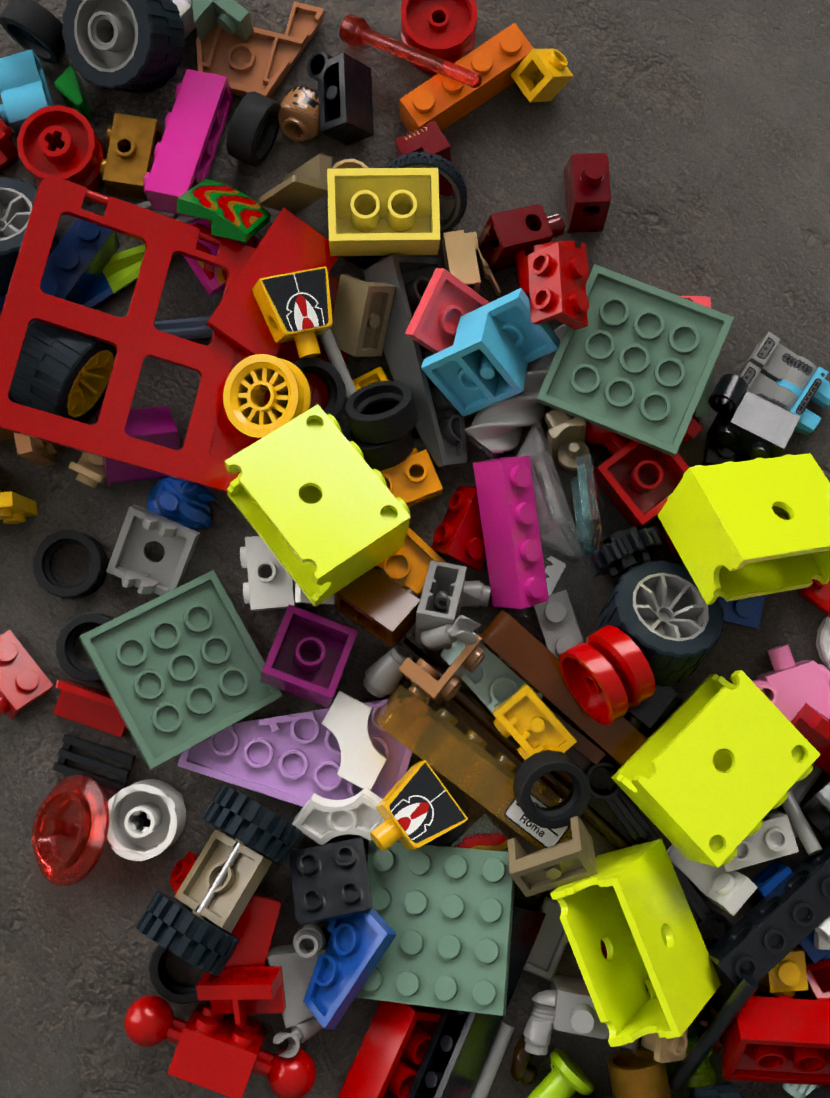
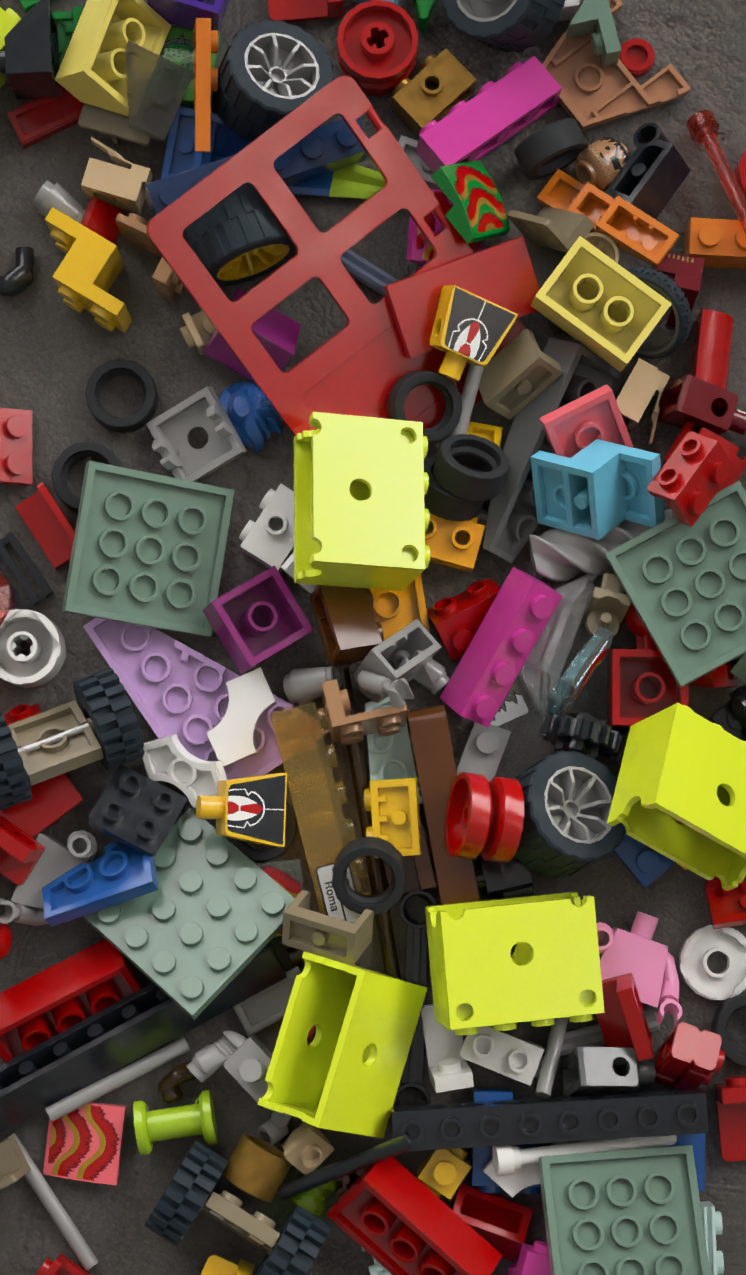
camera: 35 degrees right, 0 degrees up
(266, 16) = (637, 56): none -> red tile
(268, 374) = (401, 366): yellow wheel -> none
(357, 139) = (618, 219): none -> orange slope
(487, 185) = (712, 347): none -> red brick

